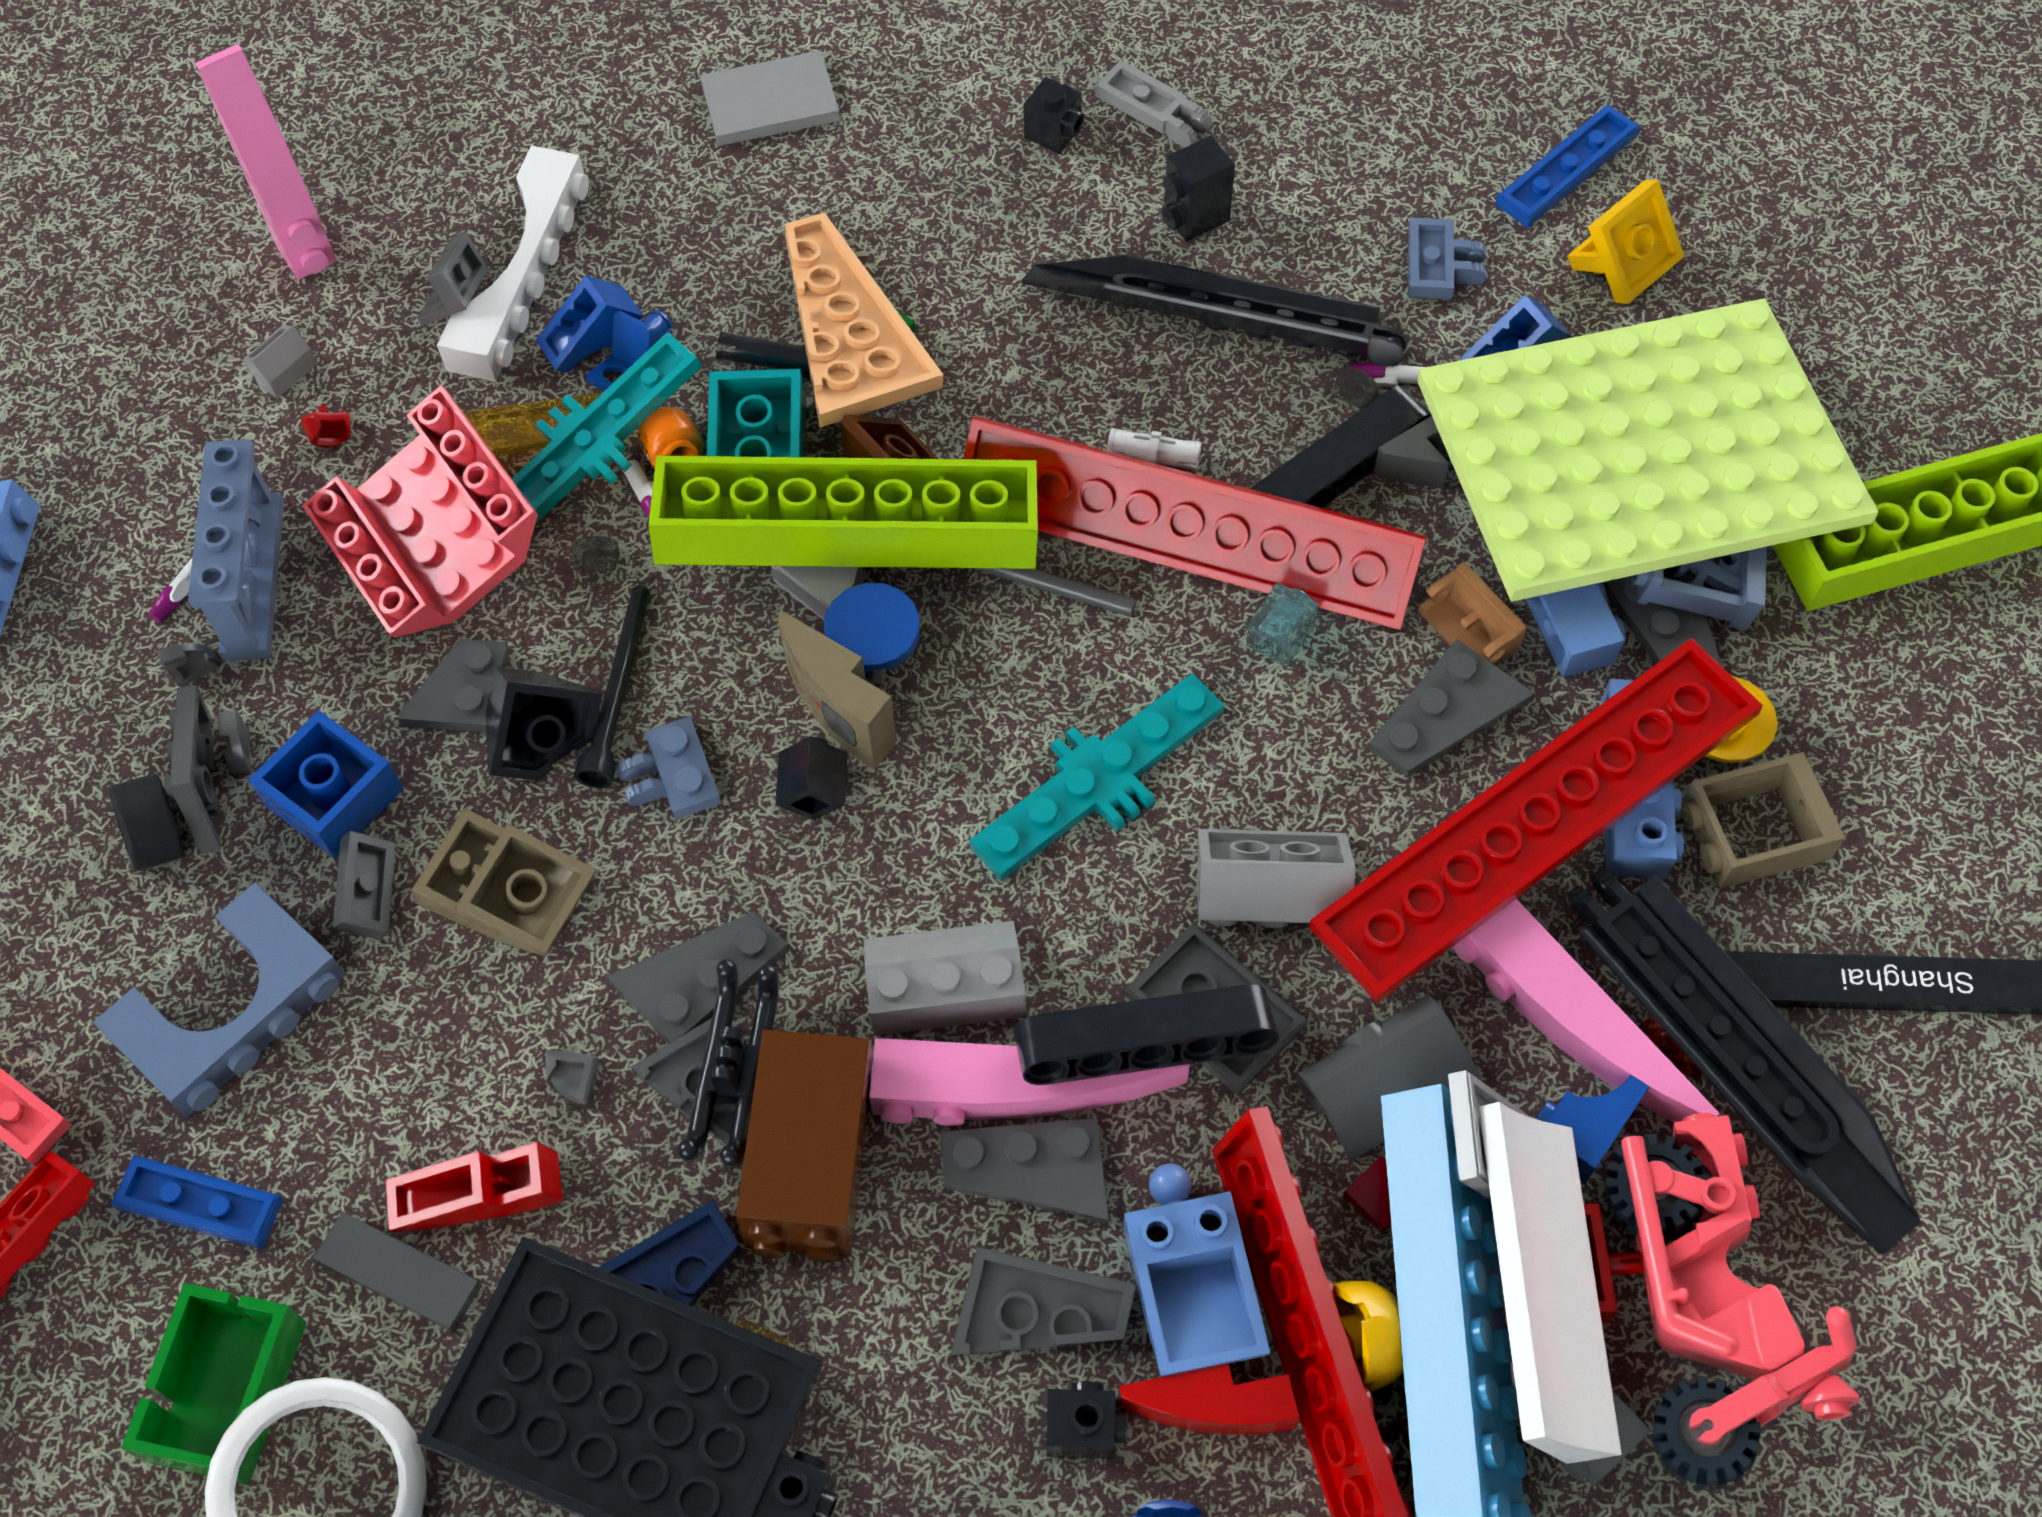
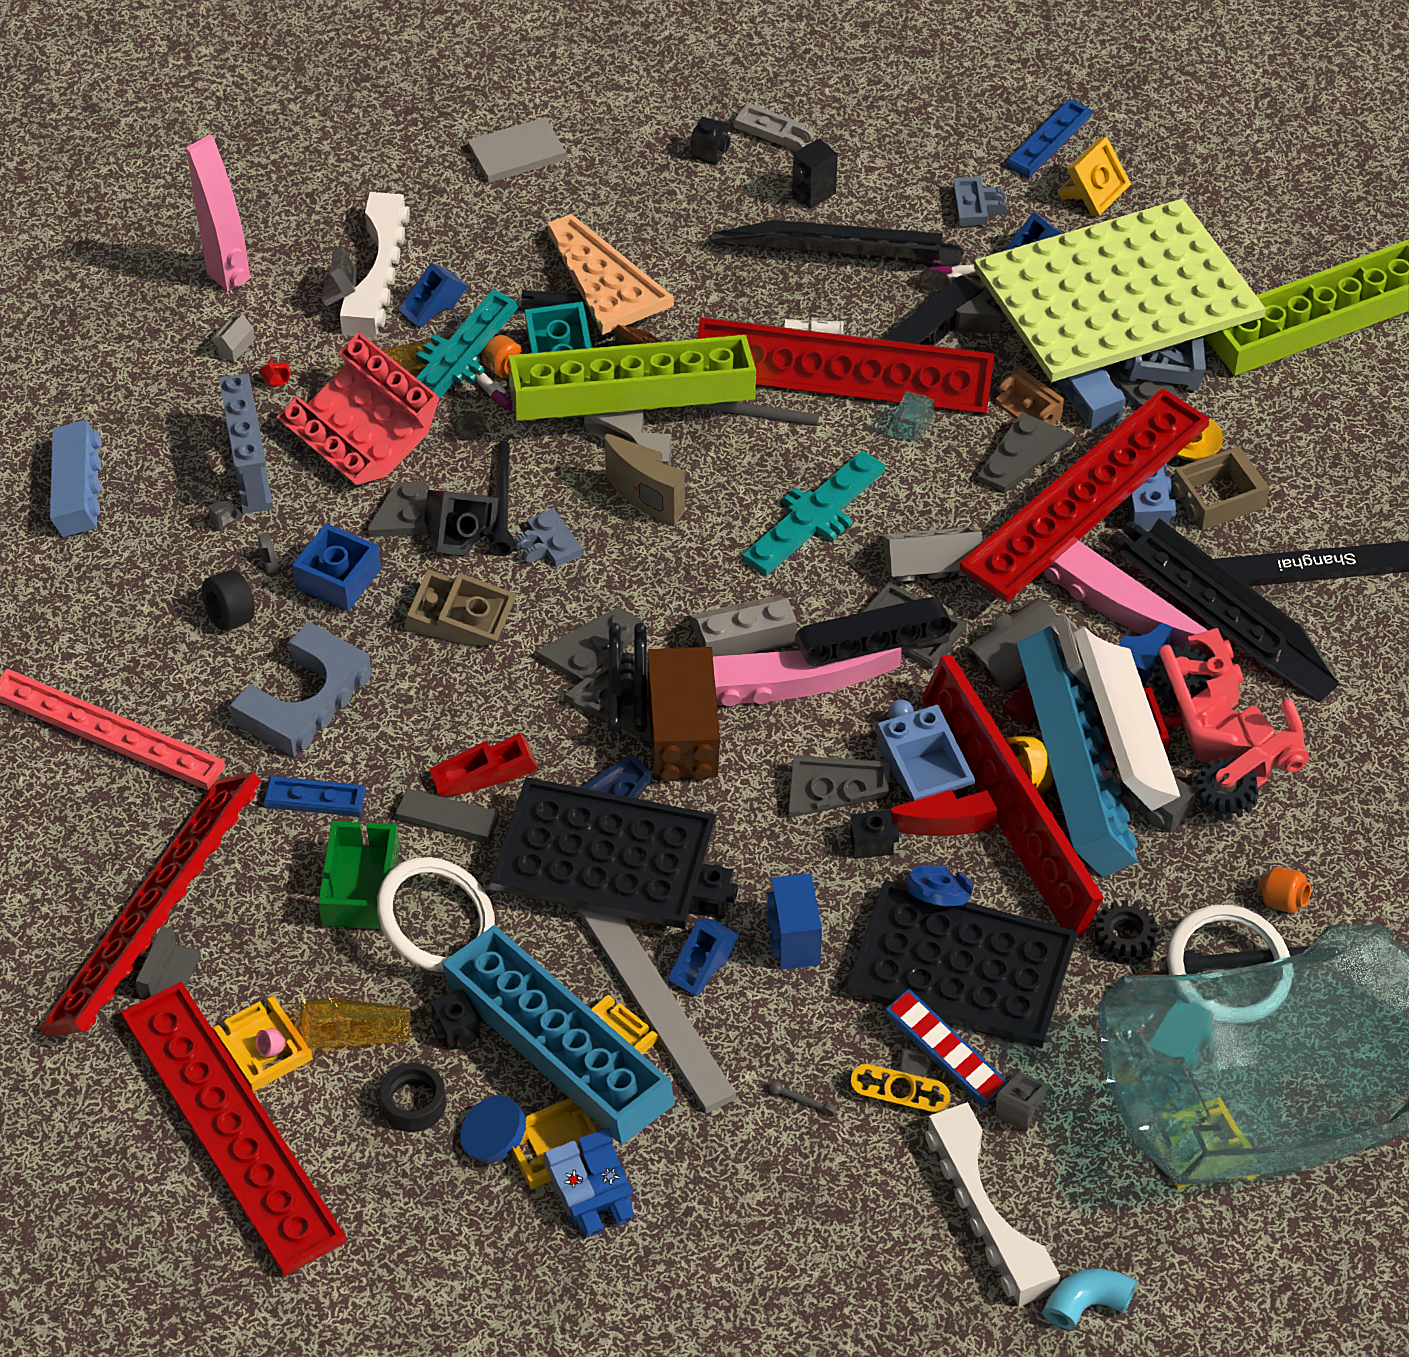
camera: 10 degrees left, 10 degrees down
(172, 595) = (204, 474): piece -> none
(190, 761) = (249, 567): dark grey wing -> none
(364, 885) = (373, 620): dark grey plate -> none
(573, 1075) = (527, 705): flat silver tile -> none
(629, 342) = (463, 303): blue bracket -> none
(811, 778) = (639, 530): black brick -> none
(875, 624) = (664, 435): blue tile -> none
(1031, 1164) = (816, 715): dark grey wing -> none

